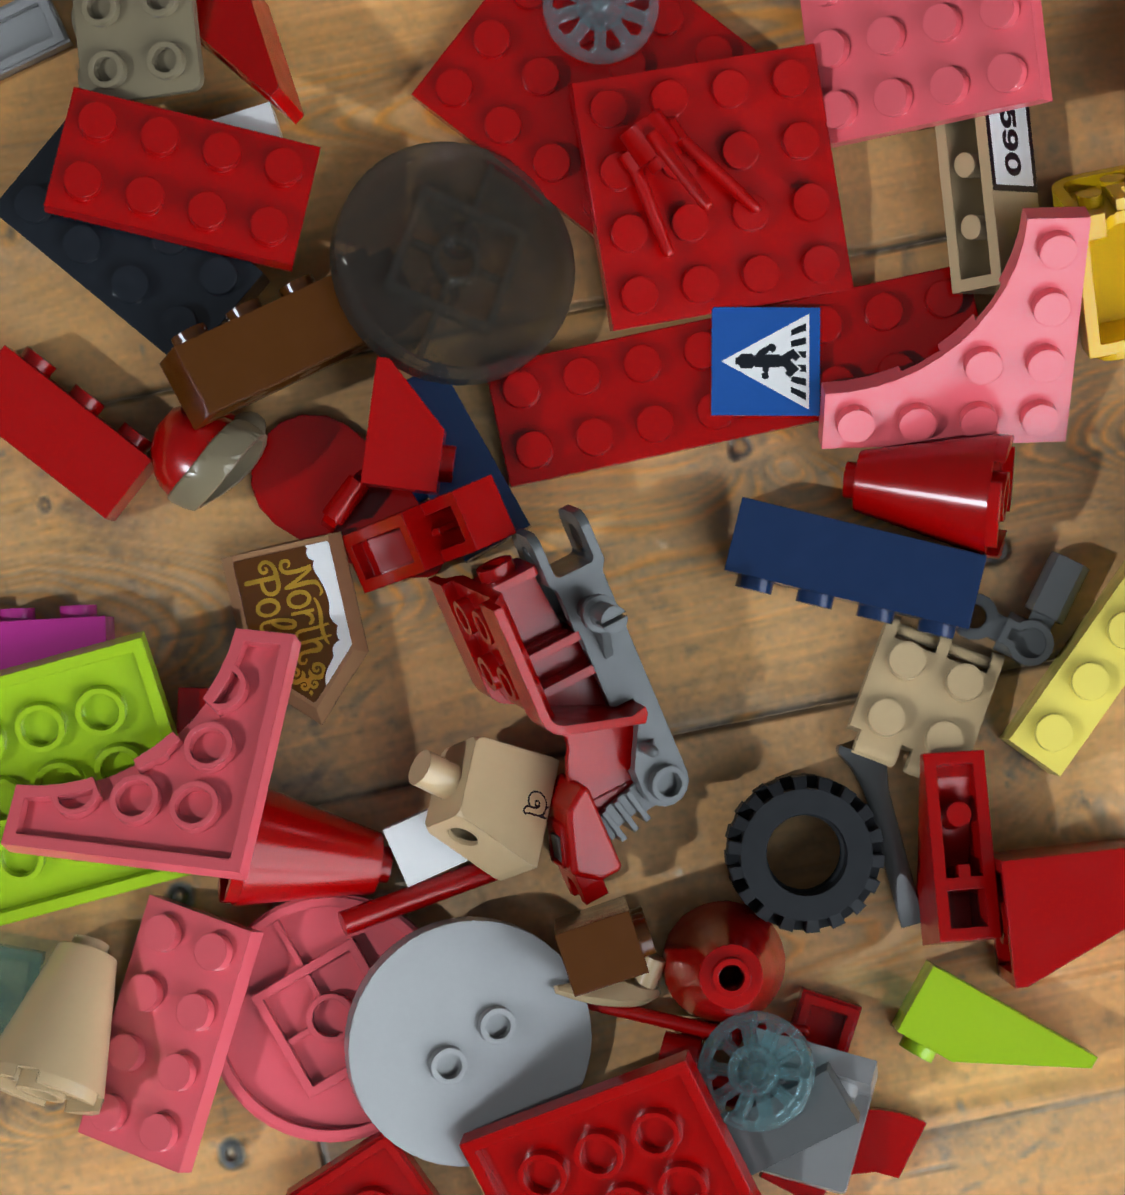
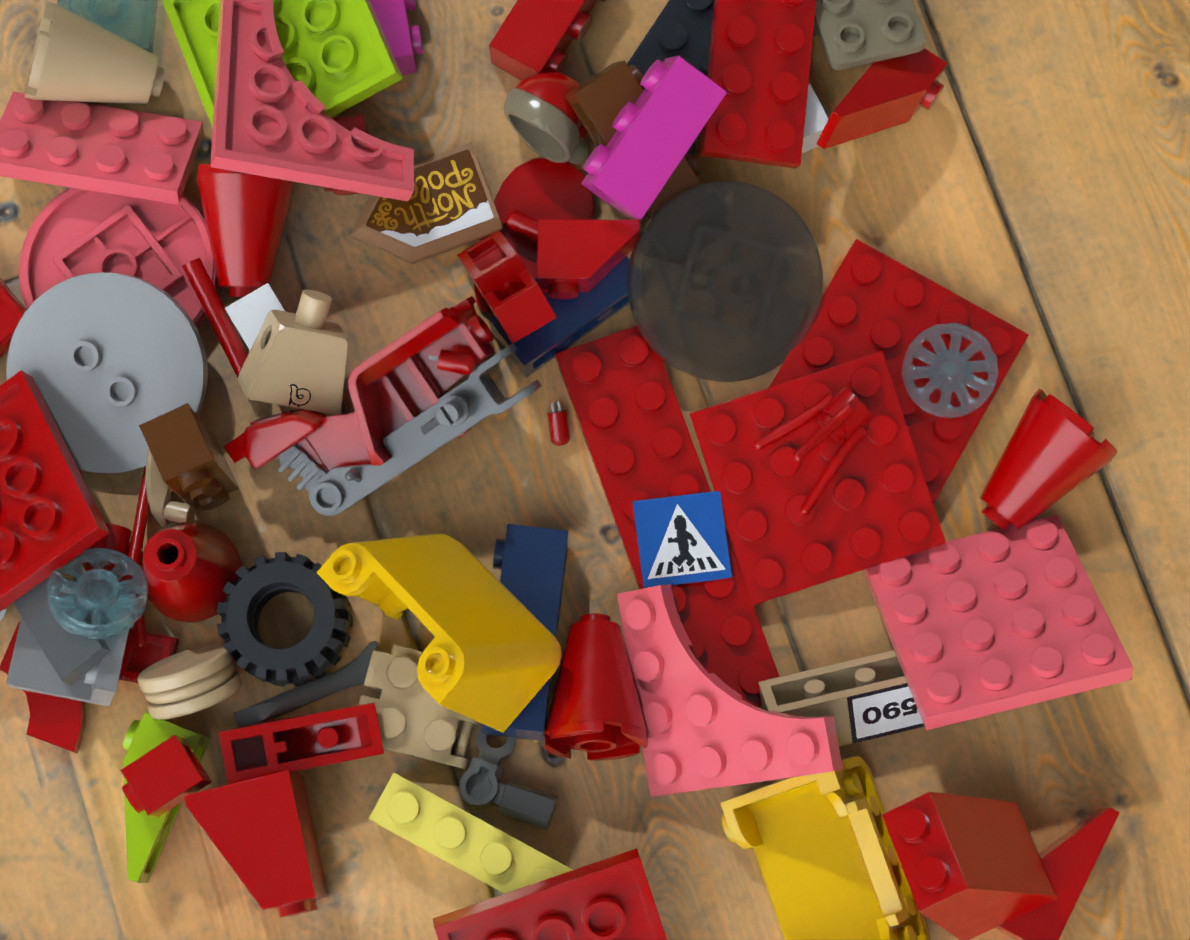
camera: 85 degrees right, 10 degrees down
(277, 325) = (652, 136): none -> dark pink brick
(539, 604) = (455, 362): none -> red piece
(597, 494) = (558, 426): none -> red piece
(867, 973) = (189, 681): none -> tan head
(871, 607) = (486, 643): none -> yellow windscreen
(985, 1011) = (164, 777): none -> red brick

